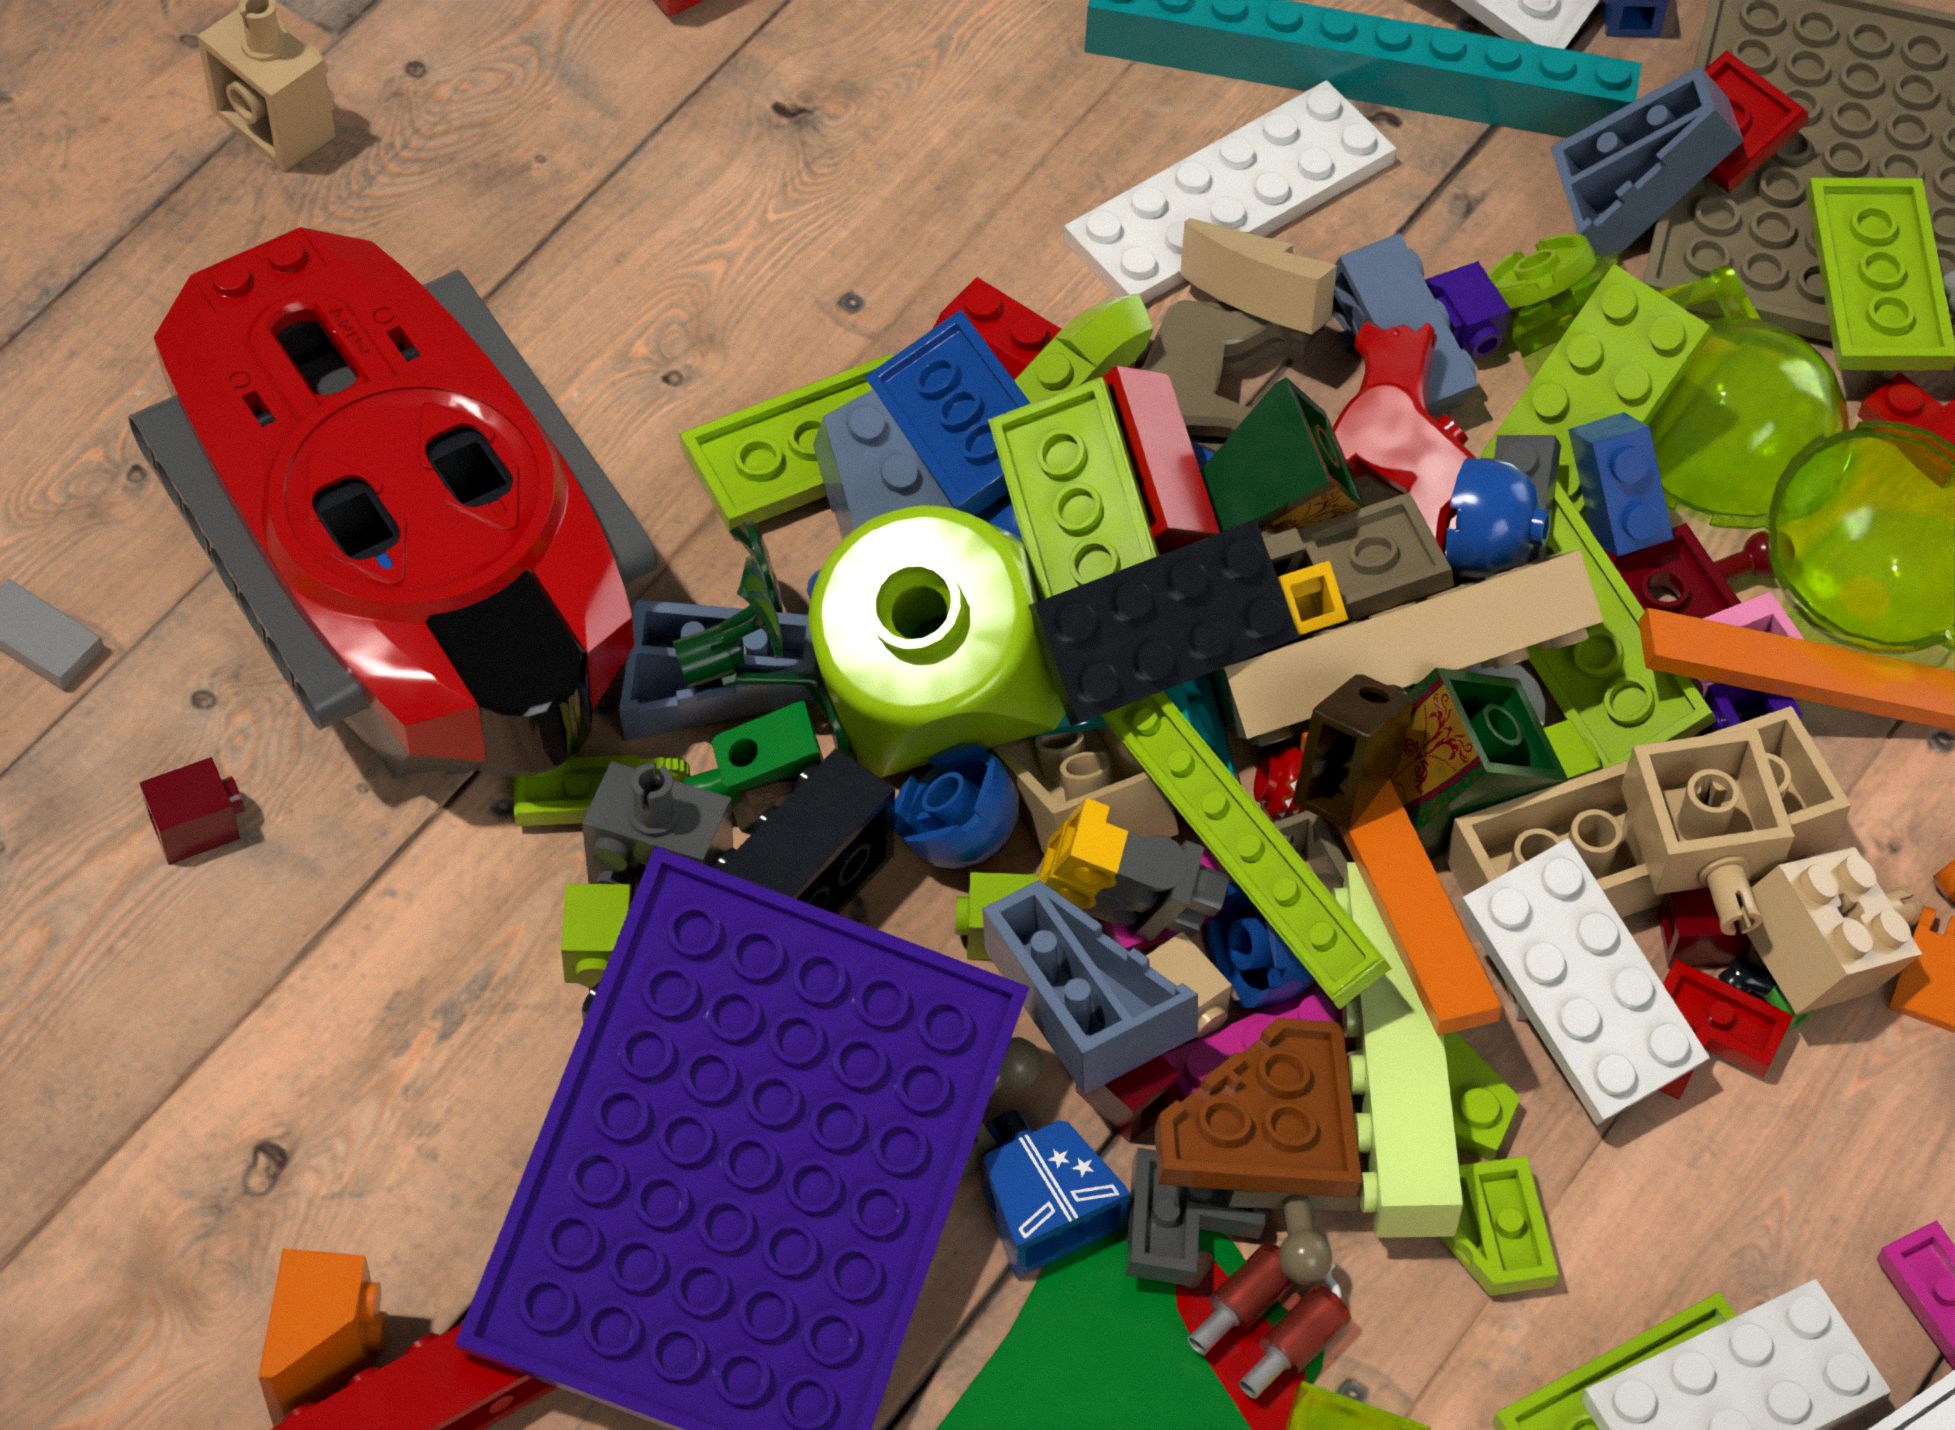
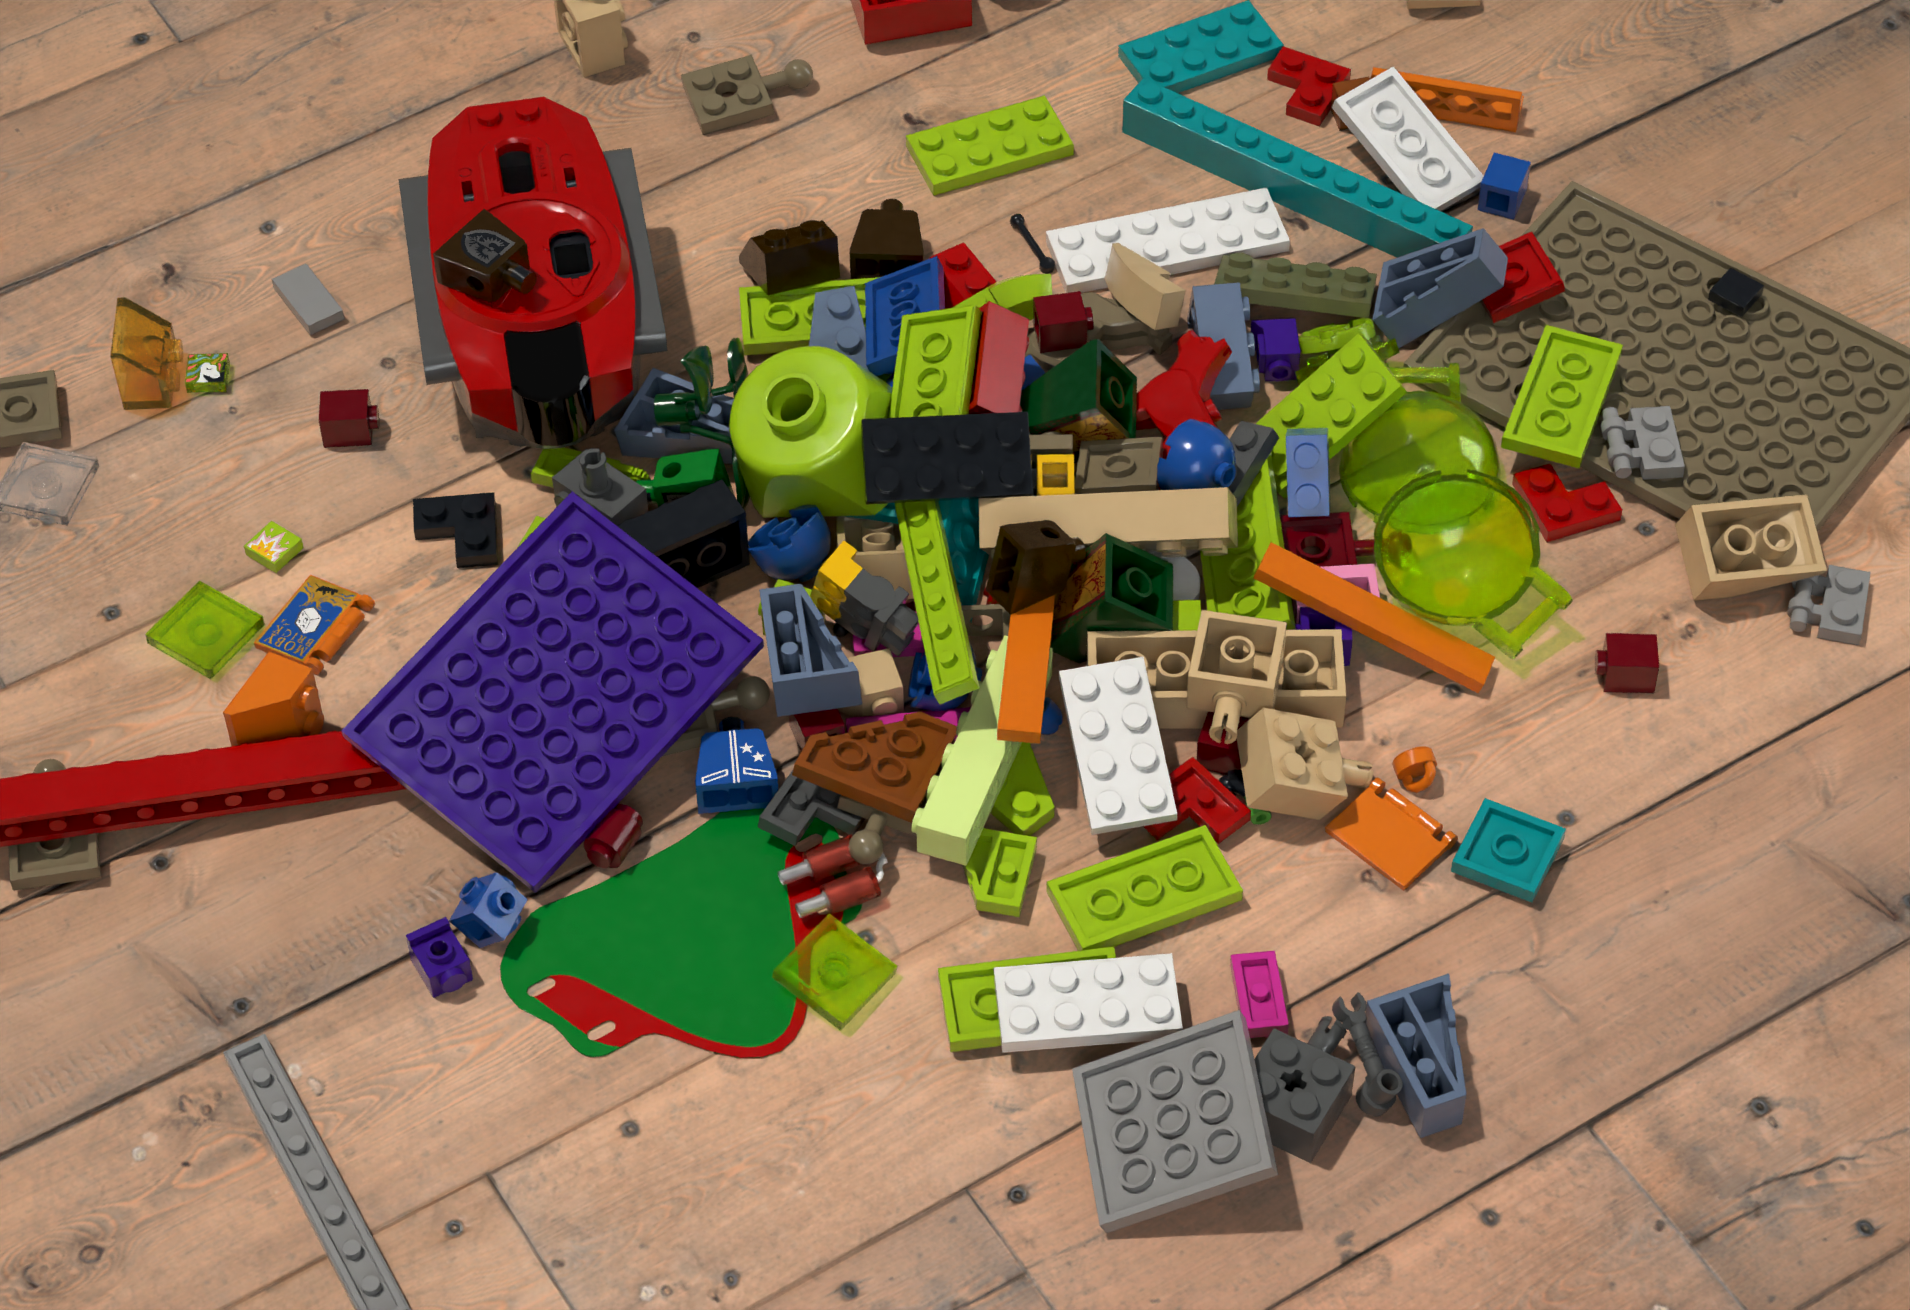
camera: 25 degrees right, 5 degrees down
(126, 1226) = (205, 629): none -> clear neon green tile
(170, 1053) = (273, 546): none -> lime tile
(291, 1160) = (314, 623): none -> piece
(359, 516) = (484, 260): none -> dark brown torso
(444, 913) = (465, 517): none -> black plate
(524, 113) = (750, 89): none -> dark tan plate
(741, 368) = (792, 257): none -> dark brown slope
(859, 306) = (885, 241): none -> dark brown torso
(916, 120) = (989, 145): none -> lime plate
(924, 1366) = (614, 837): none -> dark red brick
(1082, 273) = (1046, 264): none -> black hinge
(1184, 350) = (1061, 321): none -> dark red brick
(1446, 211) = (1300, 286): none -> olive plate
(1708, 1188) = (1144, 890): none -> lime plate

